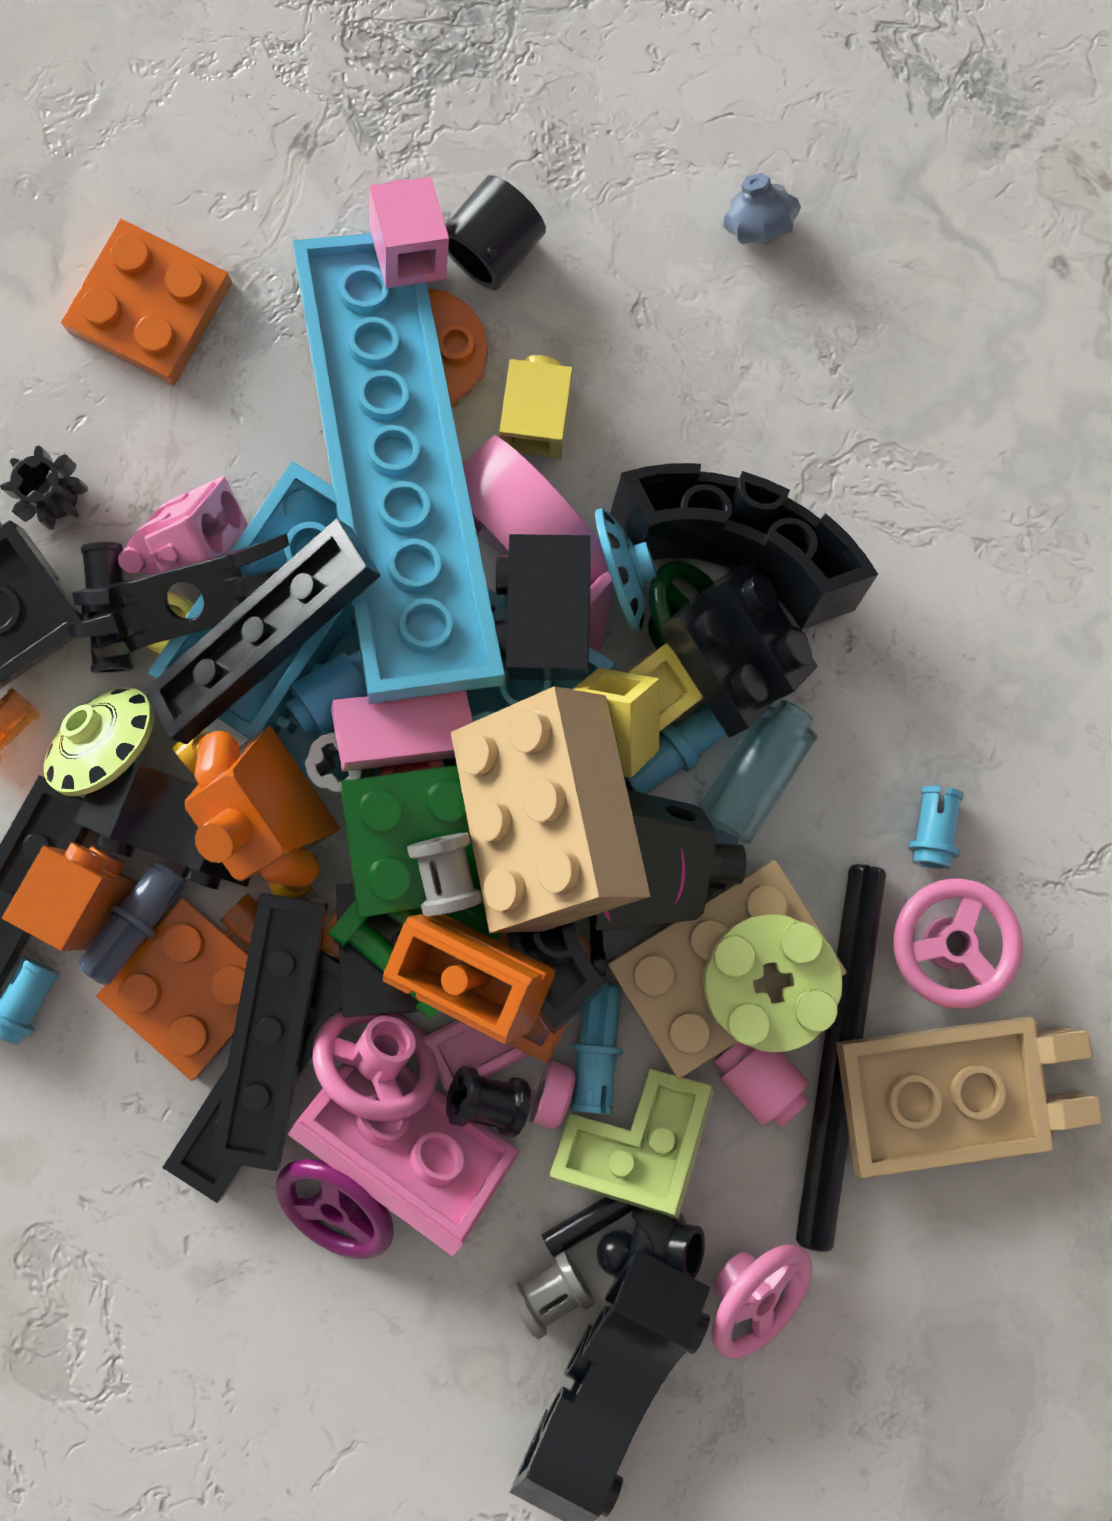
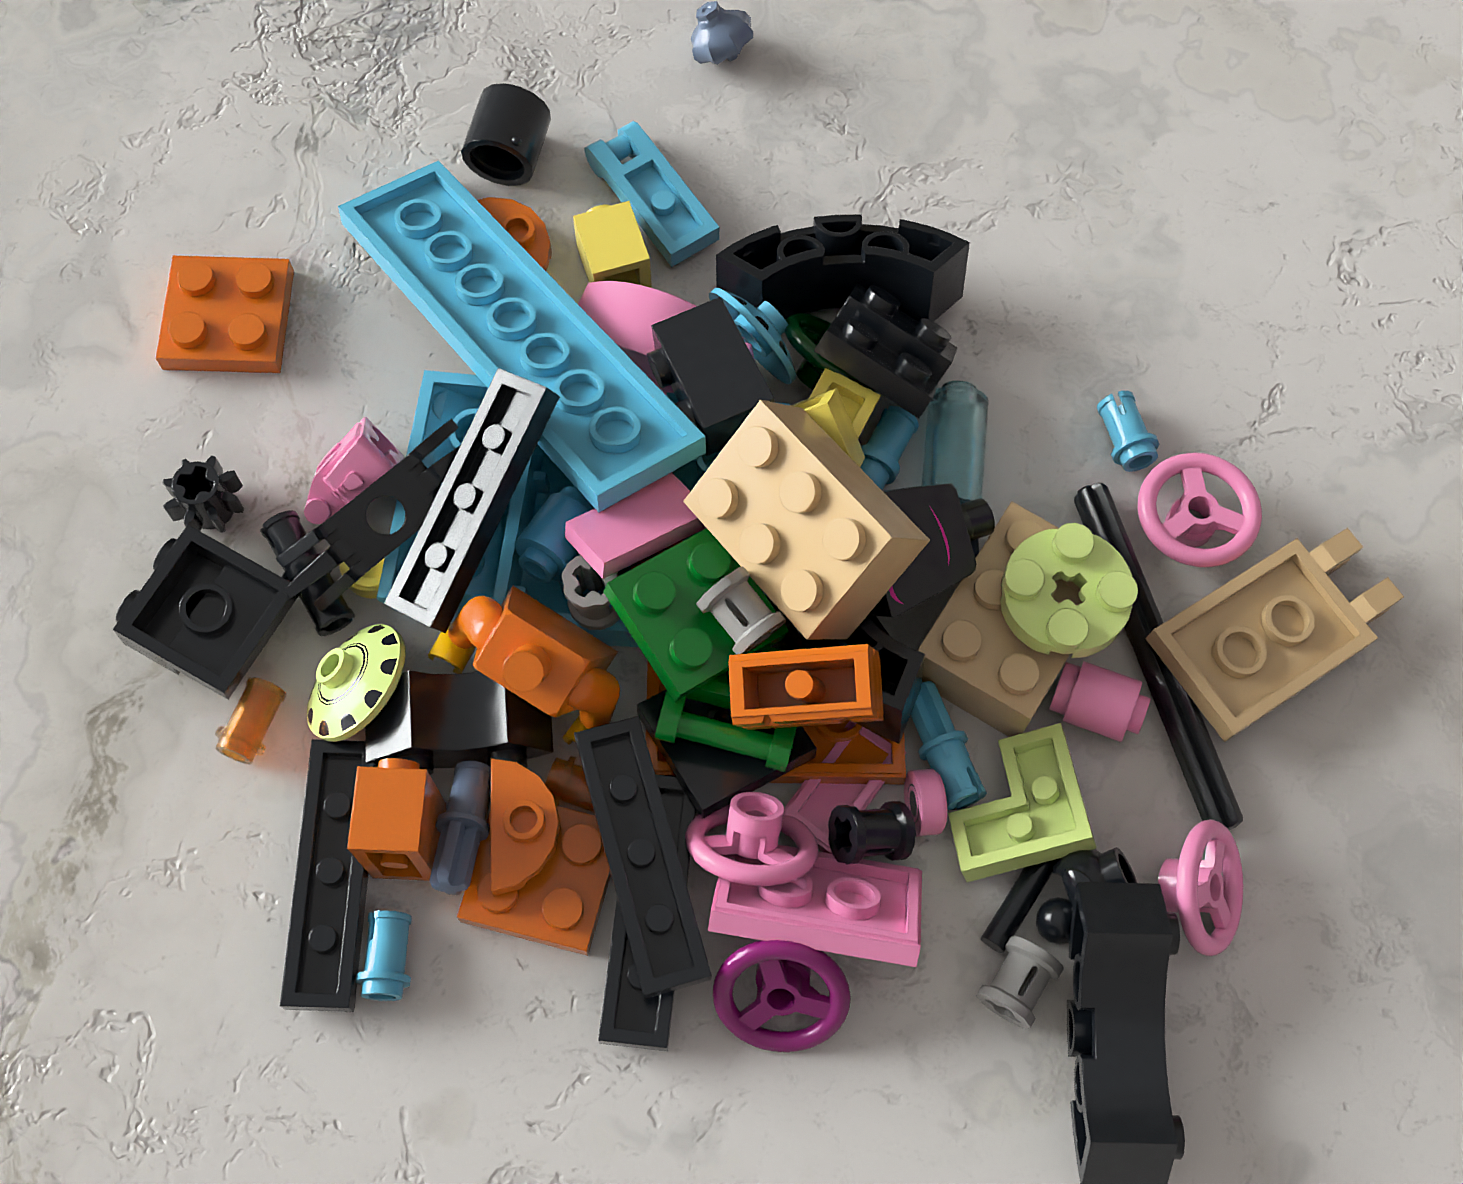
camera: 25 degrees left, 15 degrees down
(181, 949) = (522, 826): none -> orange plate
(408, 232) = (437, 155): bright pink brick -> none
(608, 360) = (656, 193): none -> medium azure plate

